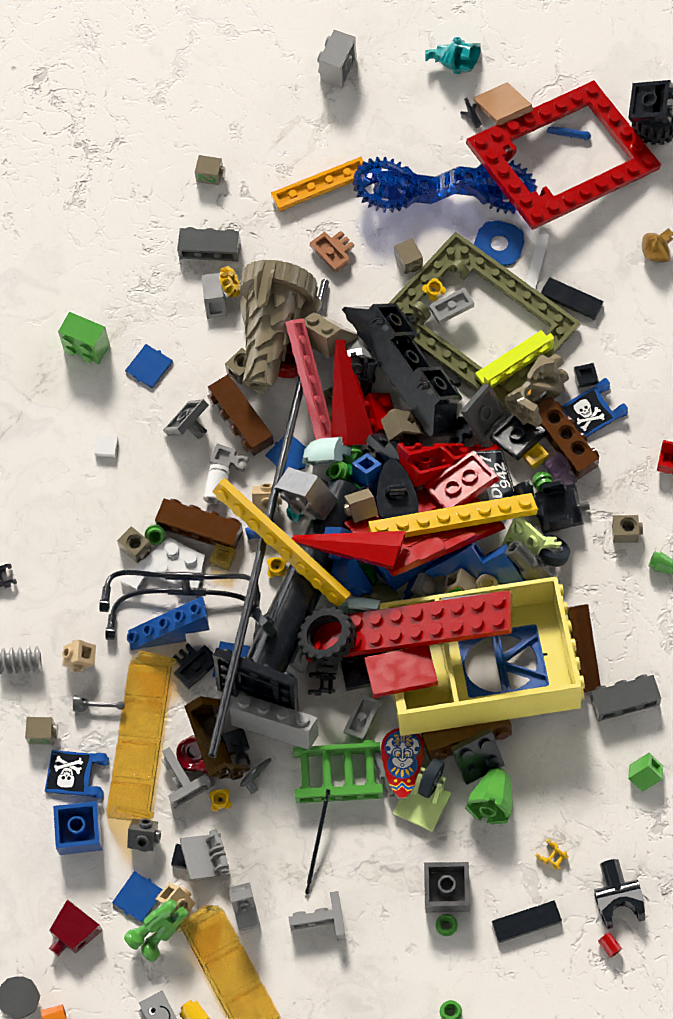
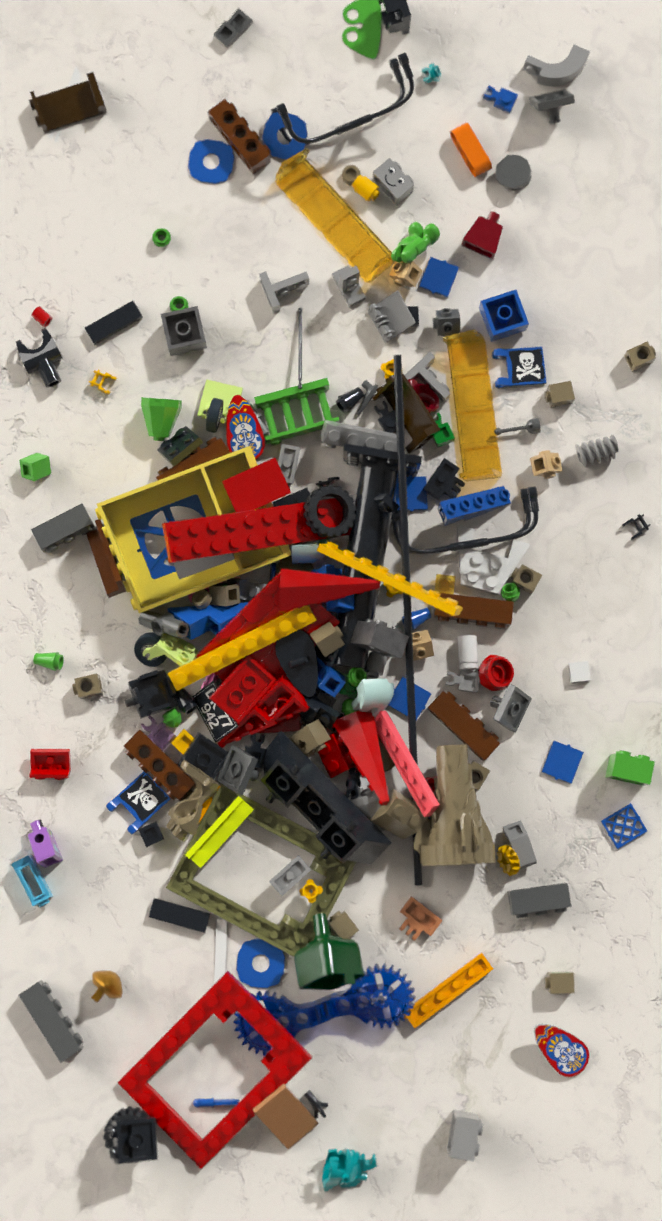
camera: 160 degrees right, 15 degrees up
(100, 304) = (631, 837): none -> blue window
(180, 718) = (445, 434): none -> green plate
(192, 458) = (495, 673): none -> red hat
(224, 113) = (562, 1049): none -> shield
(276, 773) = (348, 400): none -> black cone
(430, 219) = (327, 960): none -> dark green piece

